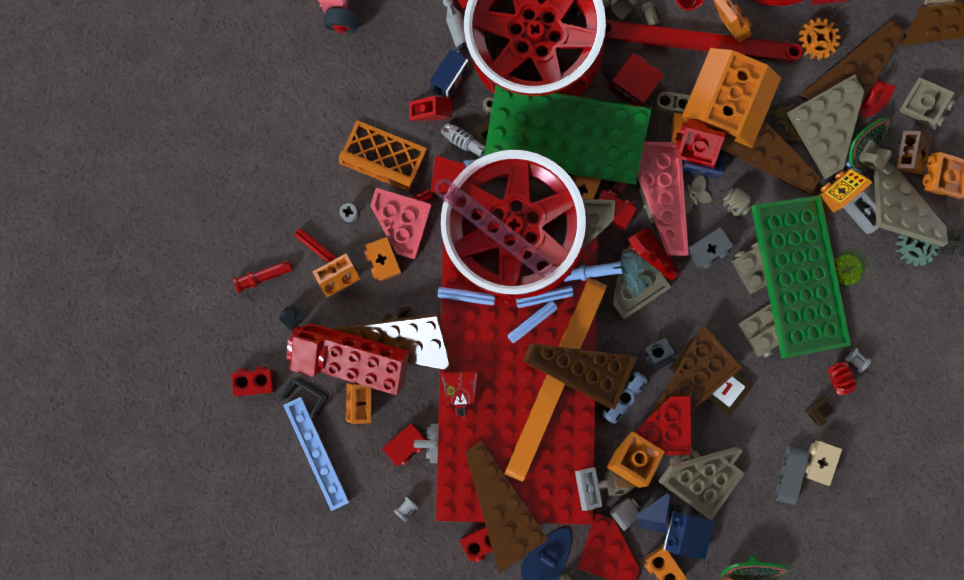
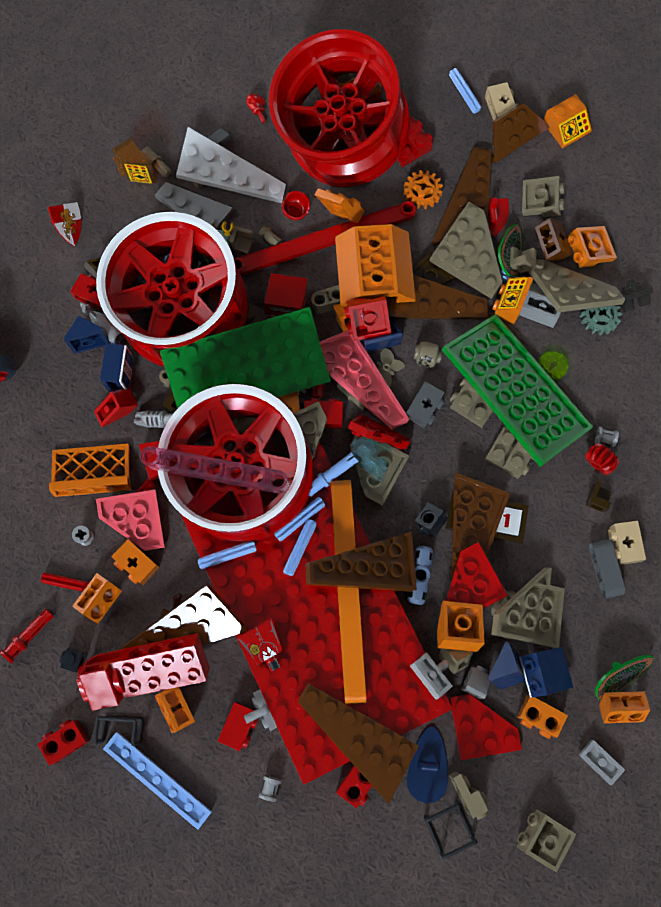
camera: 25 degrees left, 10 degrees down
(435, 29) = (85, 336): none -> dark blue slope

